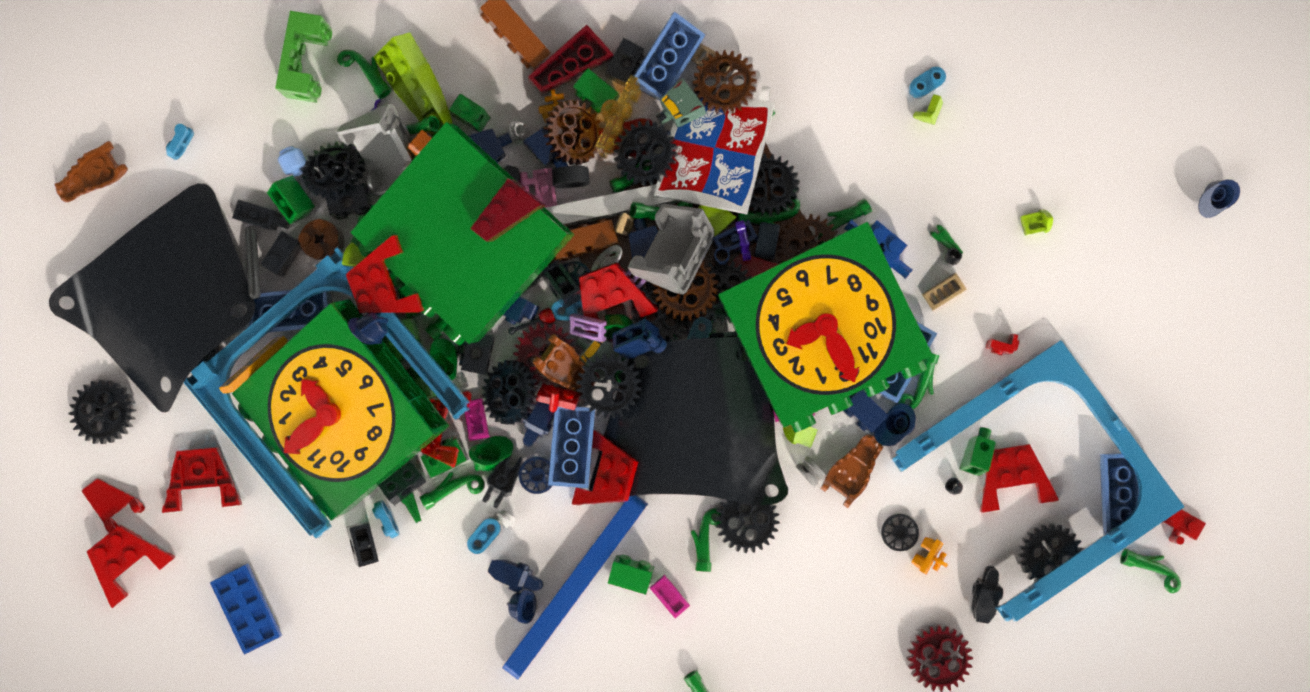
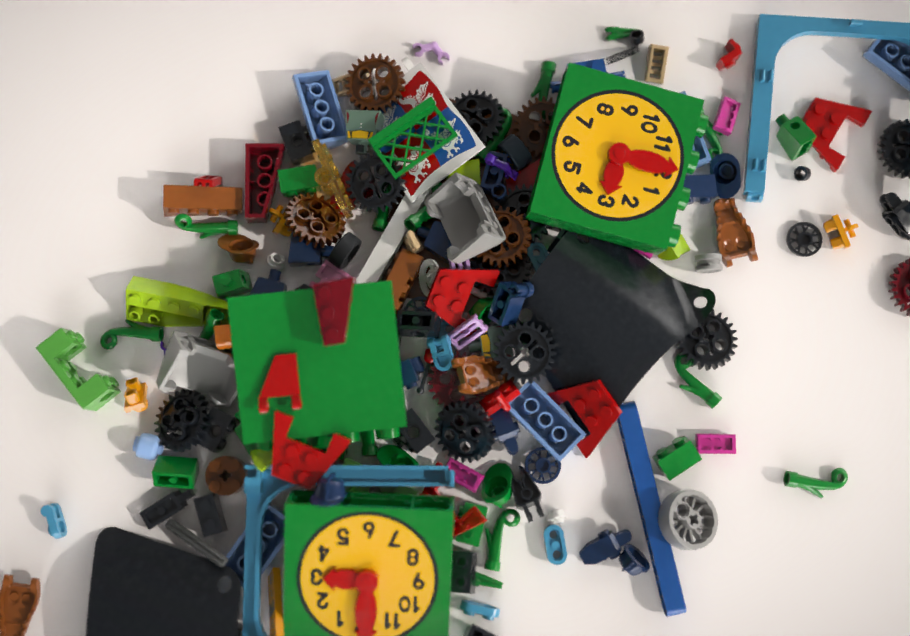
camera: 55 degrees left, 5 degrees down
(321, 117) = (135, 395): none -> light orange hips
(420, 220) = (281, 381): none -> red flag
(503, 92) = (239, 247): none -> dark orange piece
(512, 71) = (207, 229): none -> green plant
(533, 21) = (208, 180): none -> red tile
(549, 326) = (442, 359): none -> dark azure plate
(582, 601) = (688, 519): none -> light grey piece
(707, 134) = (400, 127): none -> green fence
(801, 100) = (431, 46): none -> lavender arm
(923, 258) = (619, 55): none -> black piece
(949, 384) = (726, 116): none -> dark pink plate

